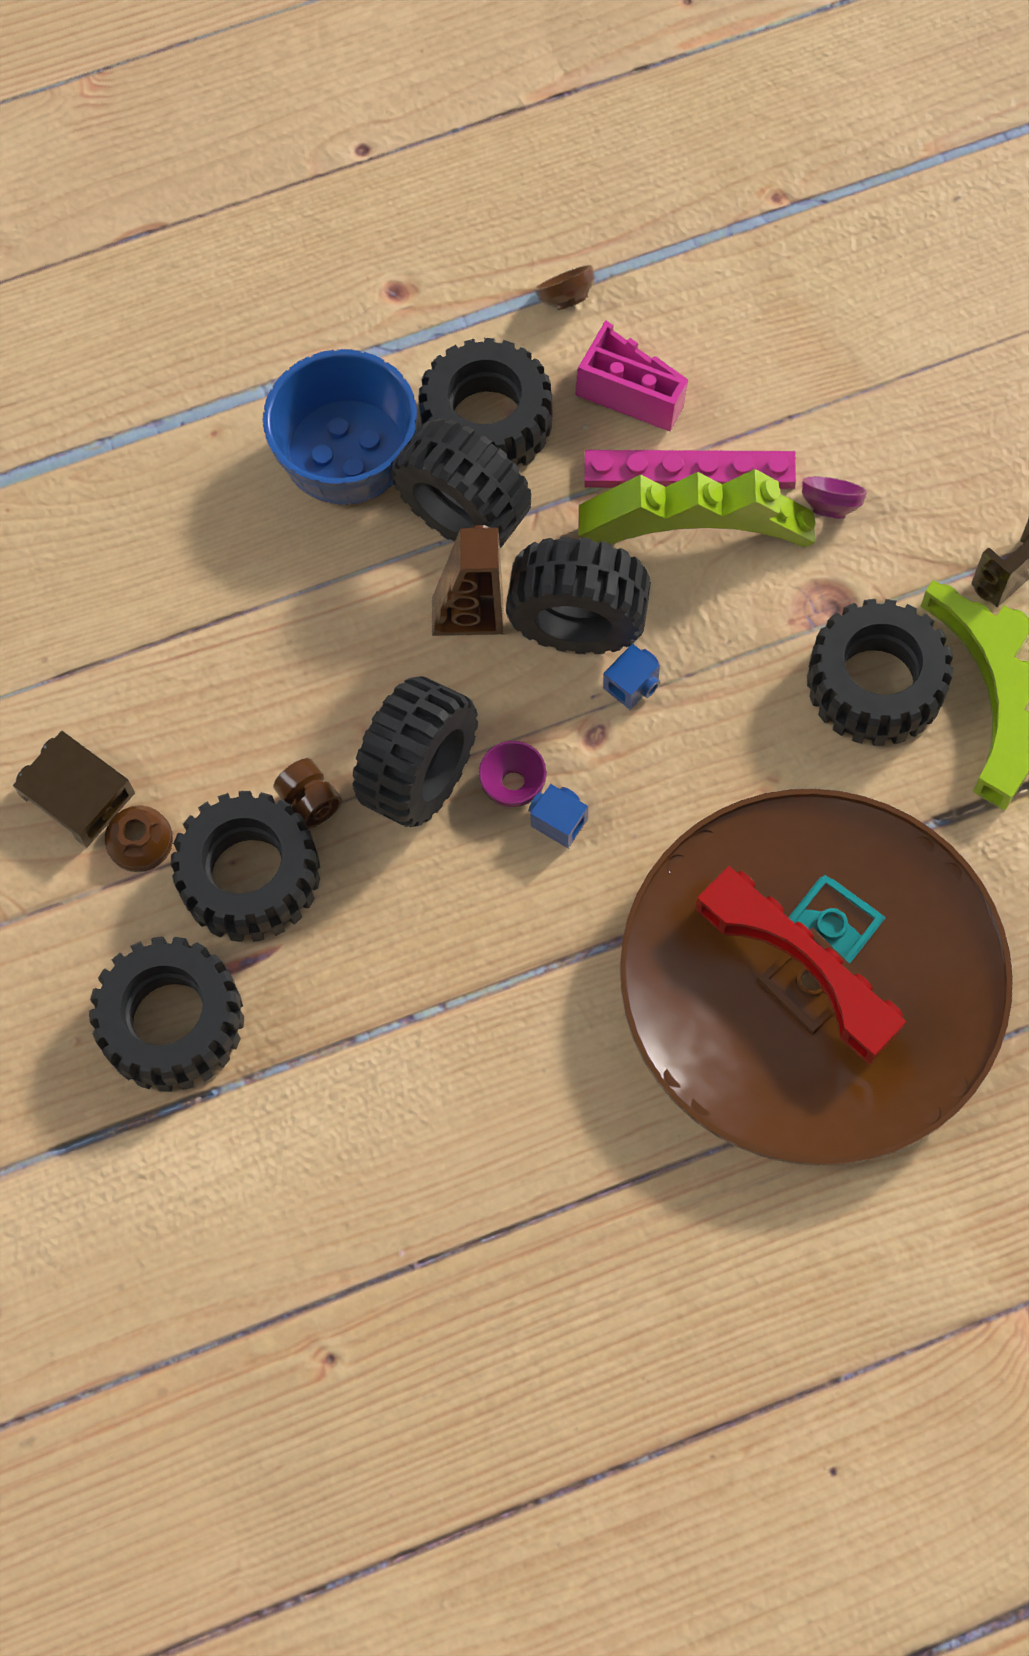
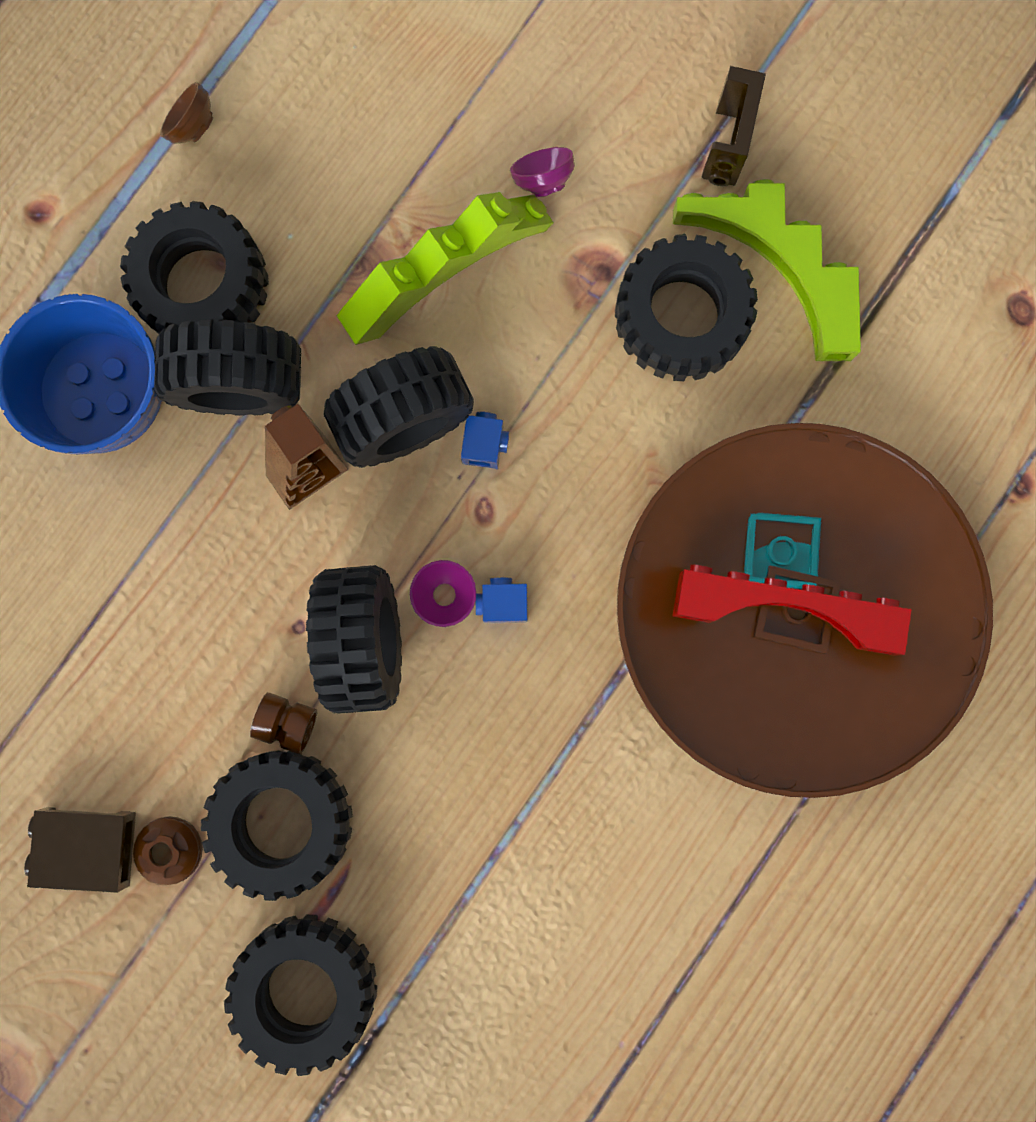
camera: 35 degrees left, 15 degrees up
(630, 381) = (302, 171): dark pink wedge -> none
(666, 467) = (405, 220): dark pink plate -> none

